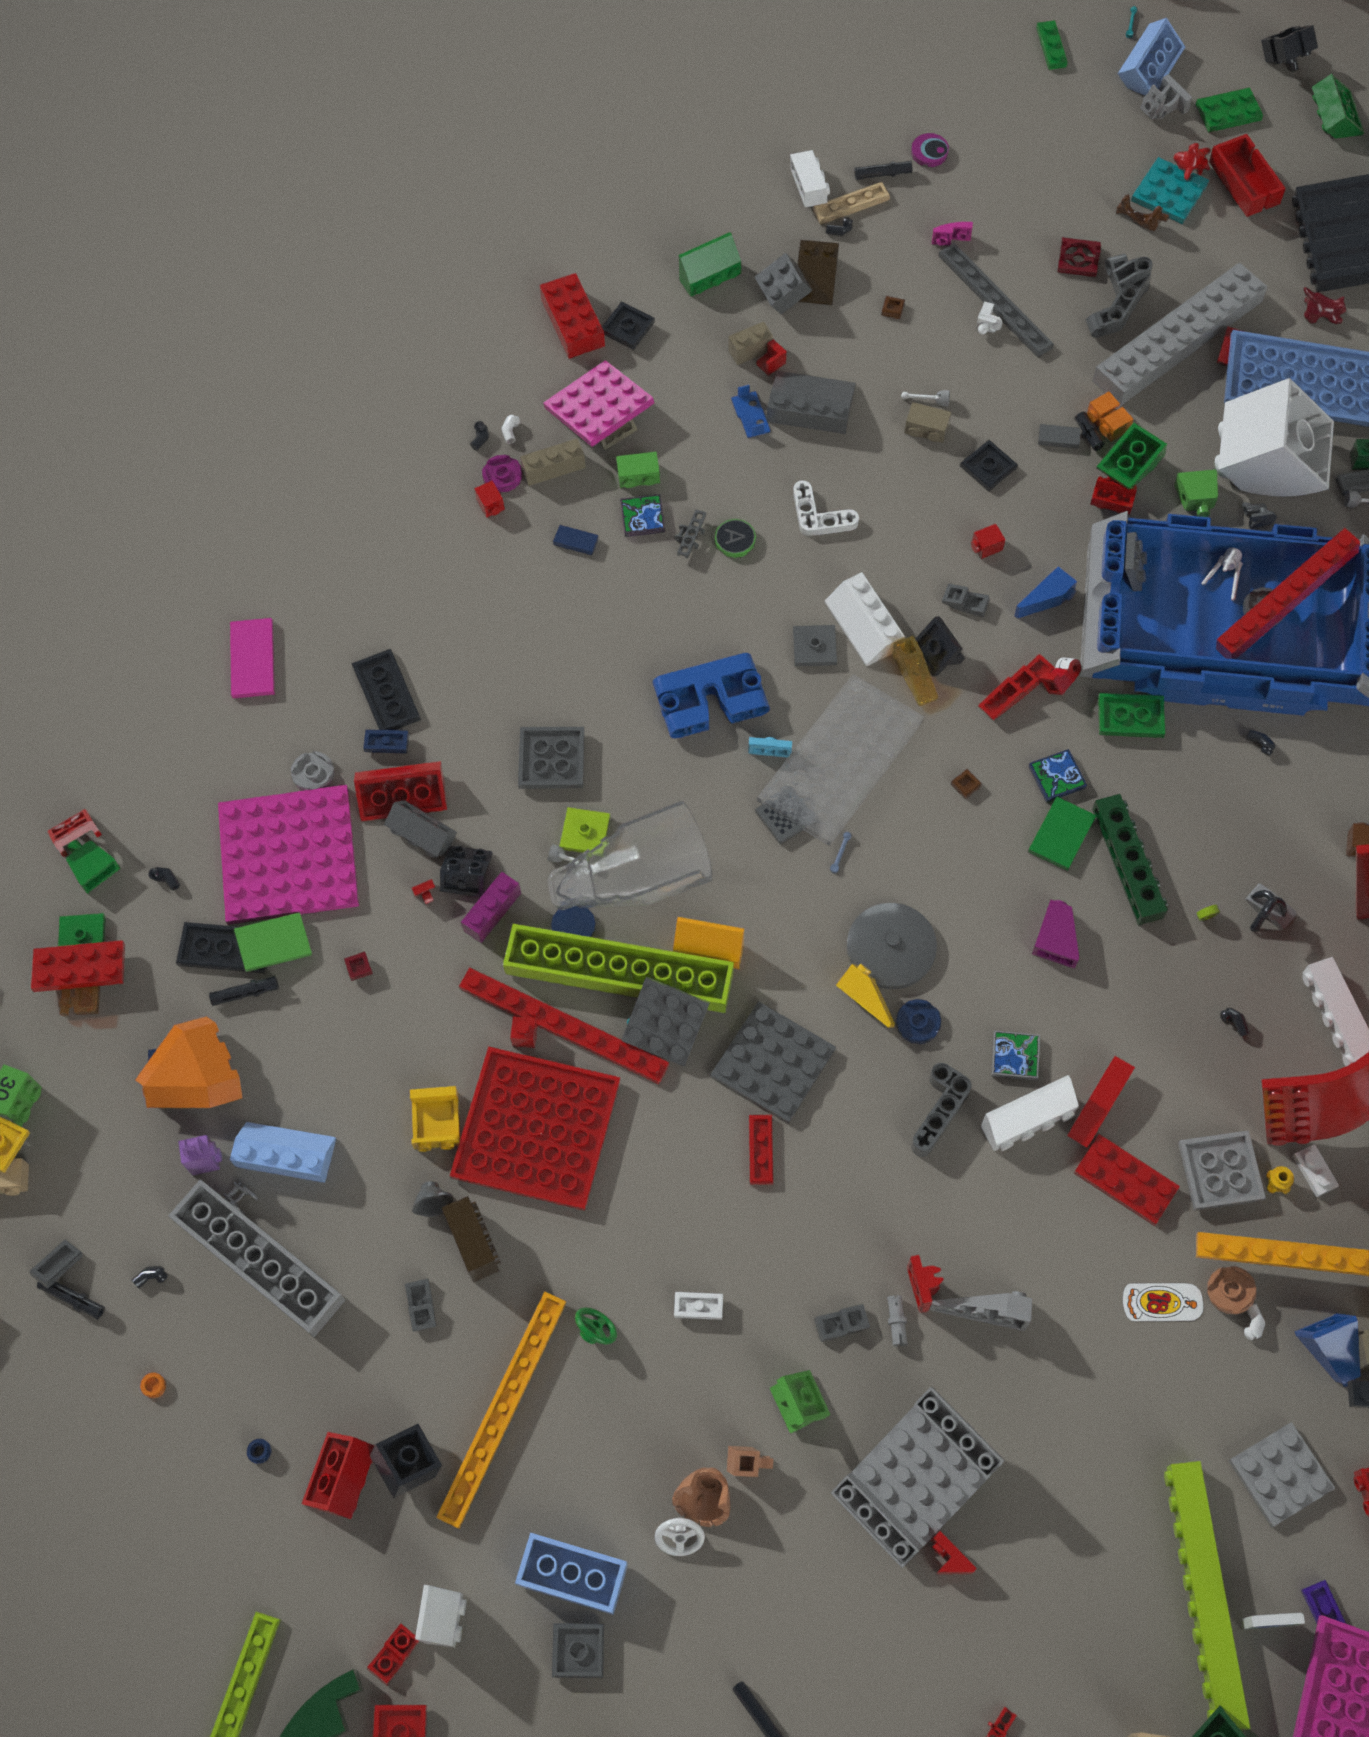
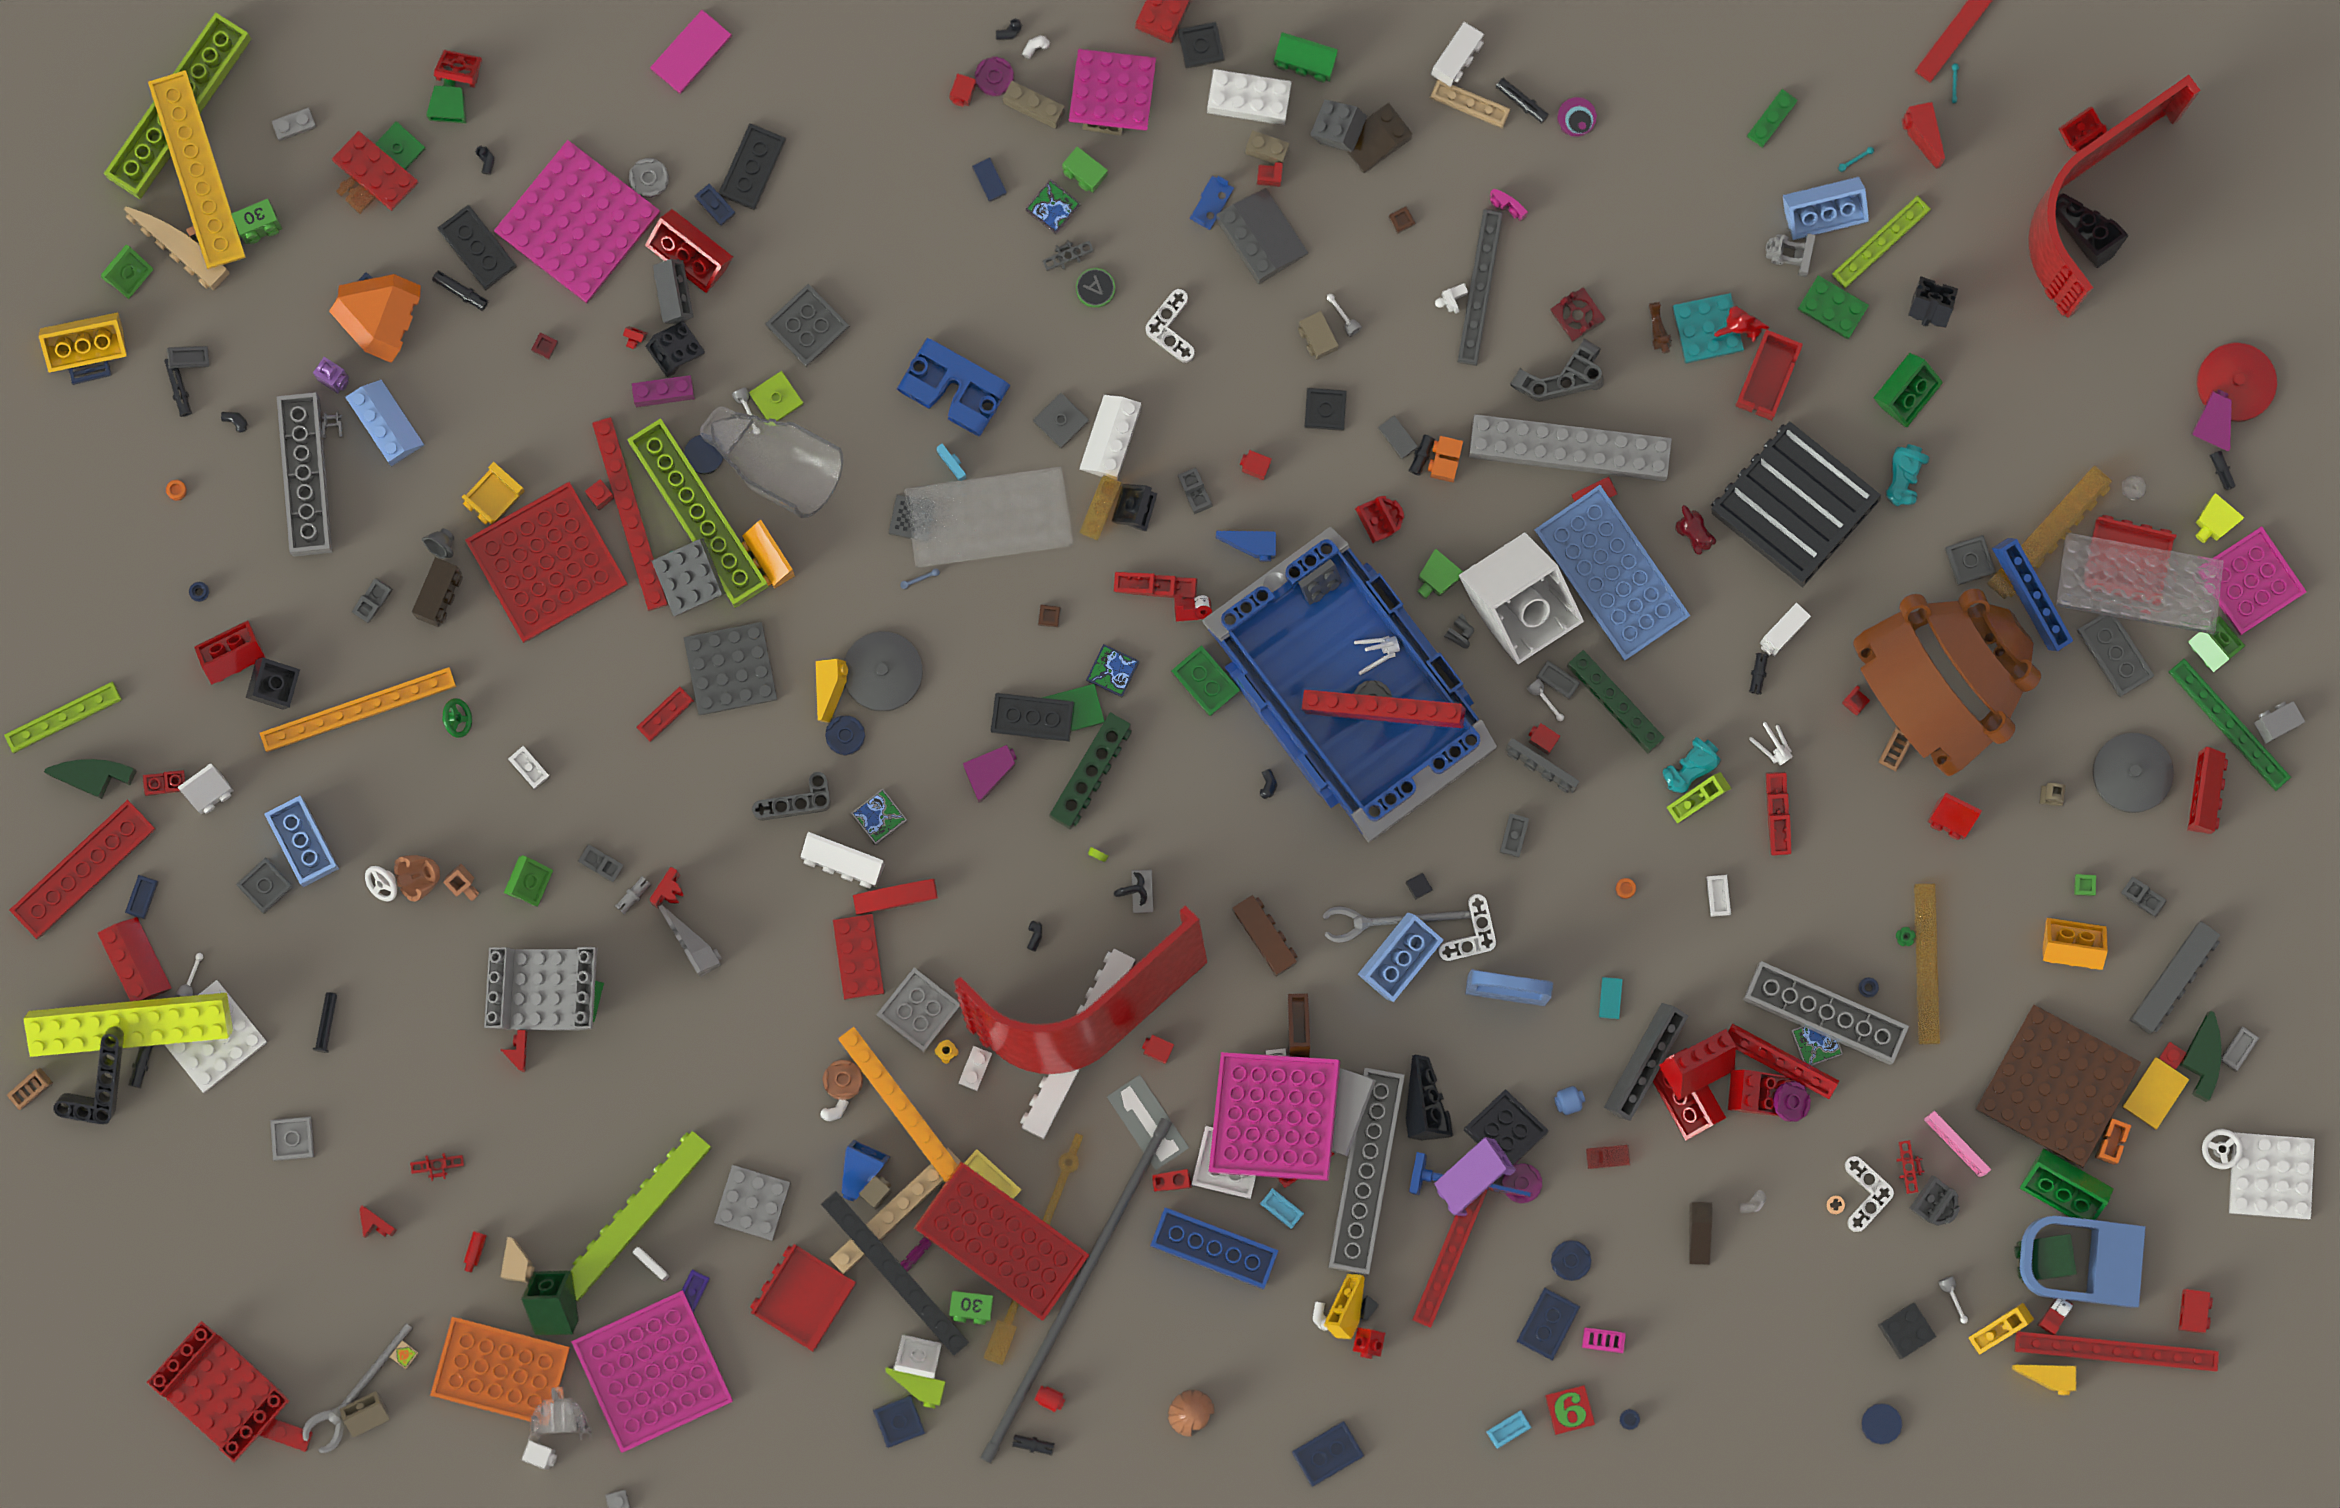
camera: 40 degrees right, 15 degrees up
(272, 942) = (508, 275): bright green tile -> none
(699, 324) = (1249, 97): none -> white brick
(840, 229) = (1436, 118): black arm -> none
(1042, 863) = (1032, 717): none -> black tile
(1133, 456) = (1419, 505): green slope -> none
(1162, 1302) = (798, 1045): sticker -> none
(1208, 50) = (1881, 242): none -> lime tile

